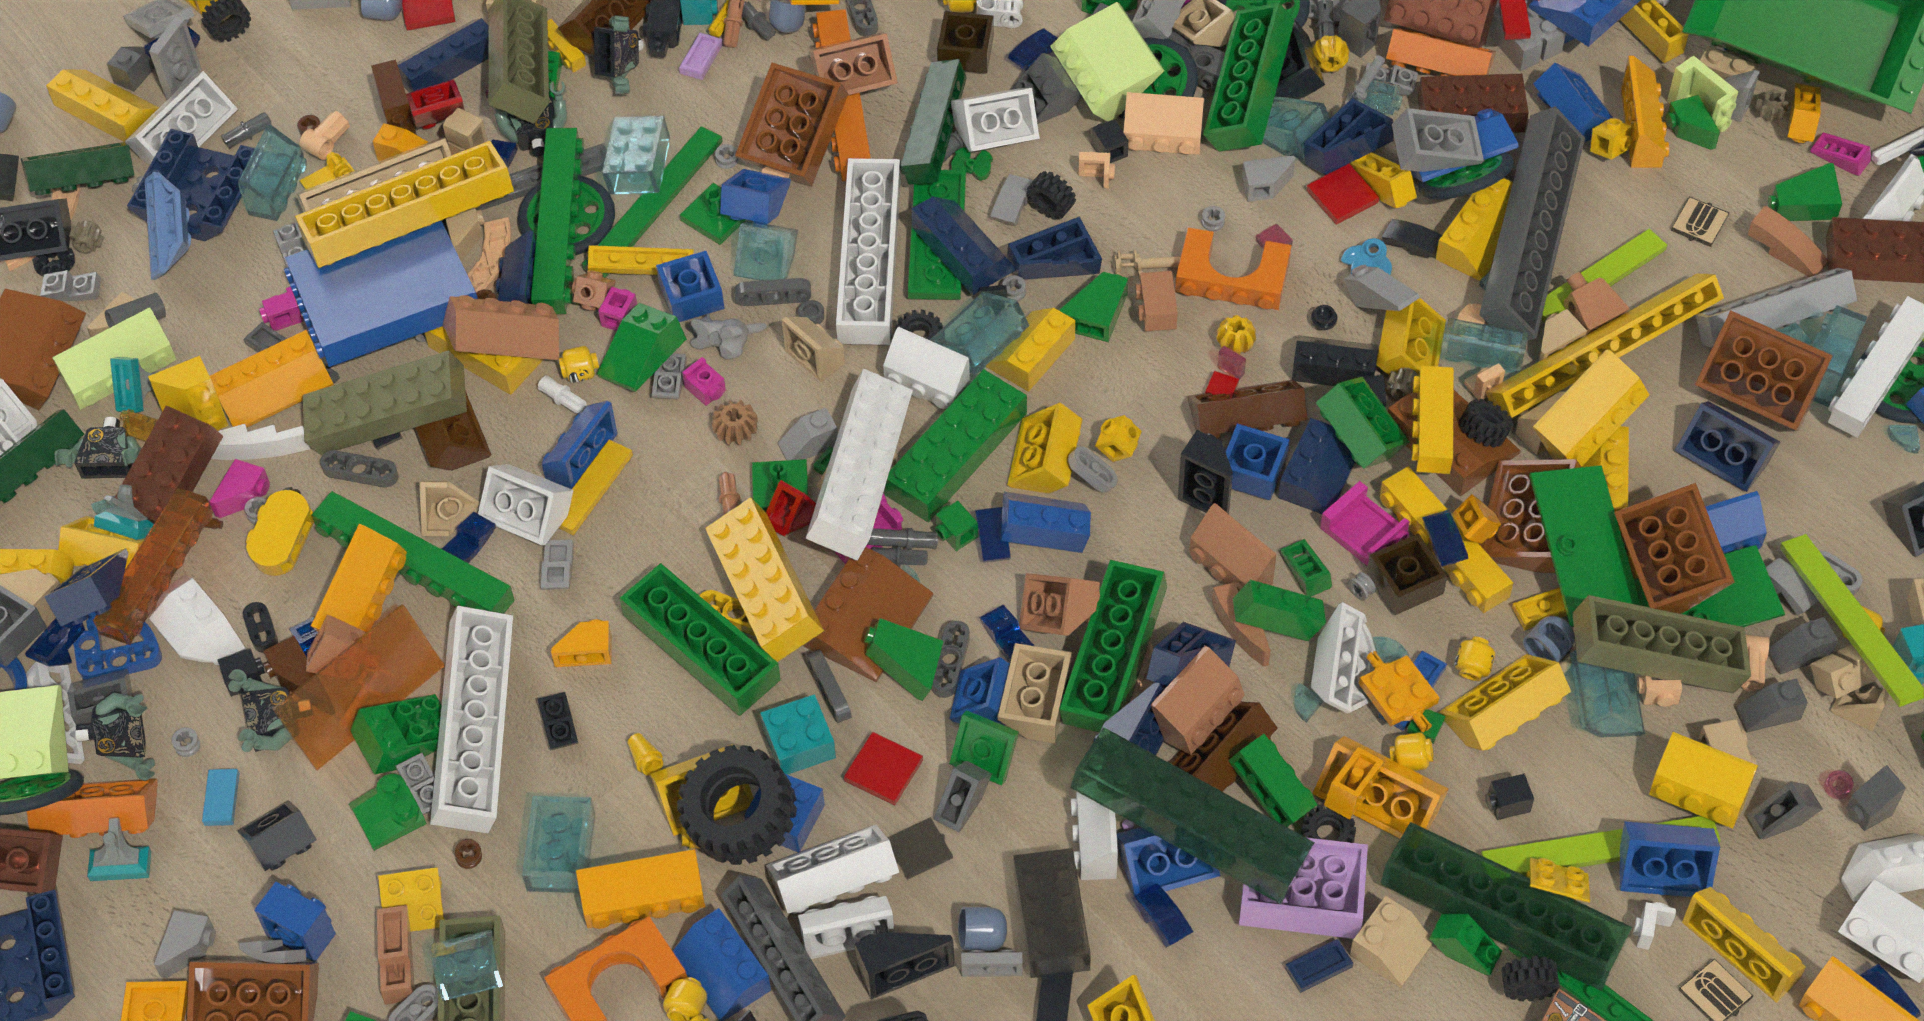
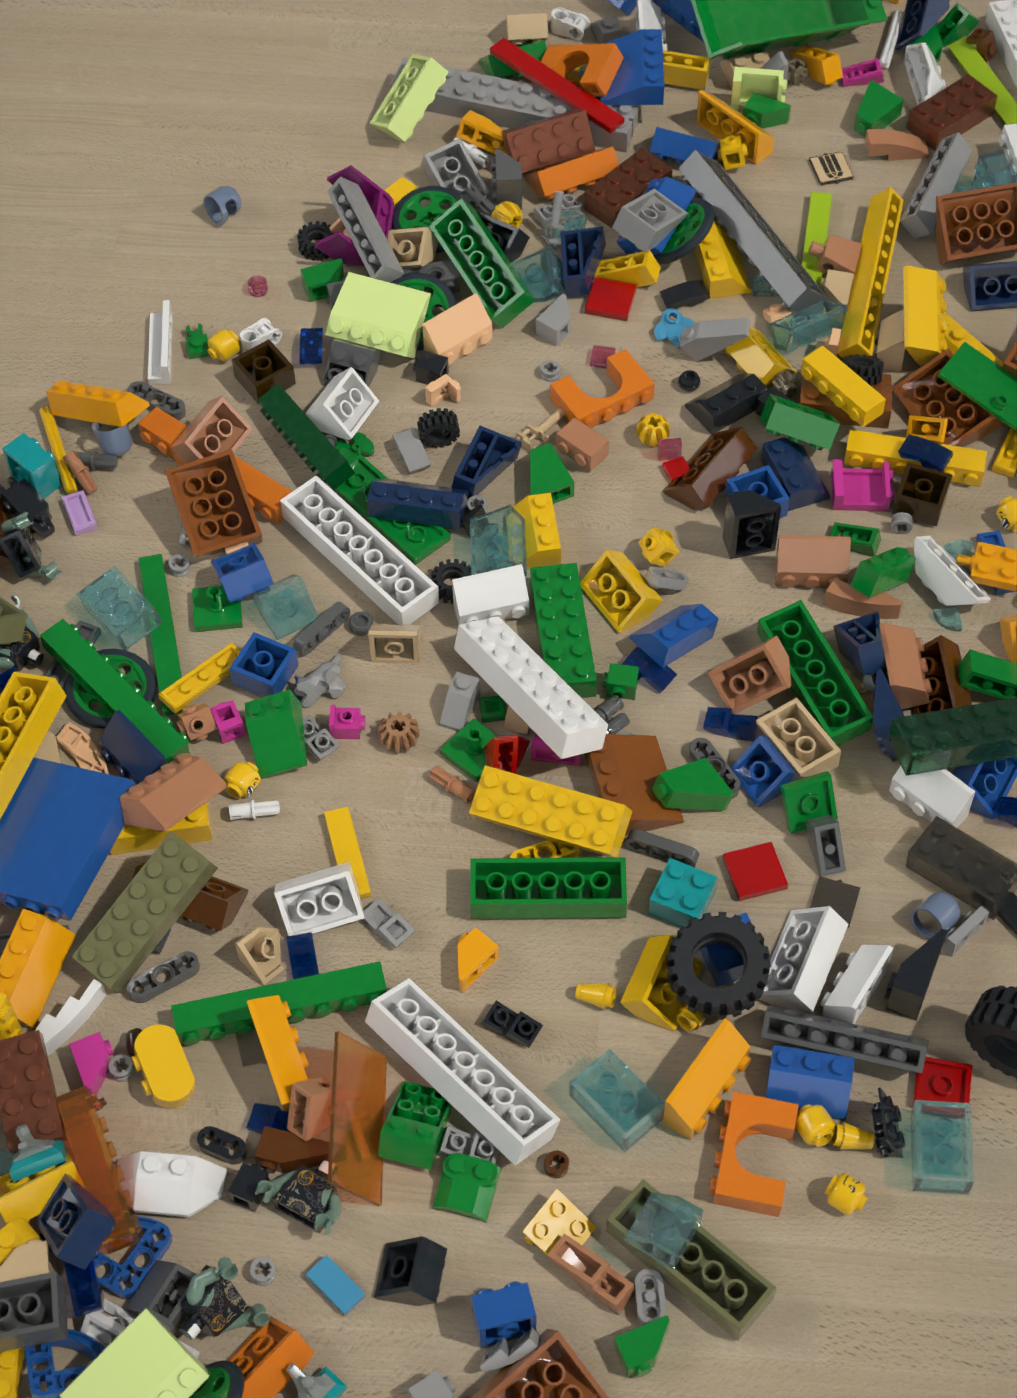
camera: 45 degrees left, 0 degrees up
(580, 444) = (310, 829): blue slope -> none

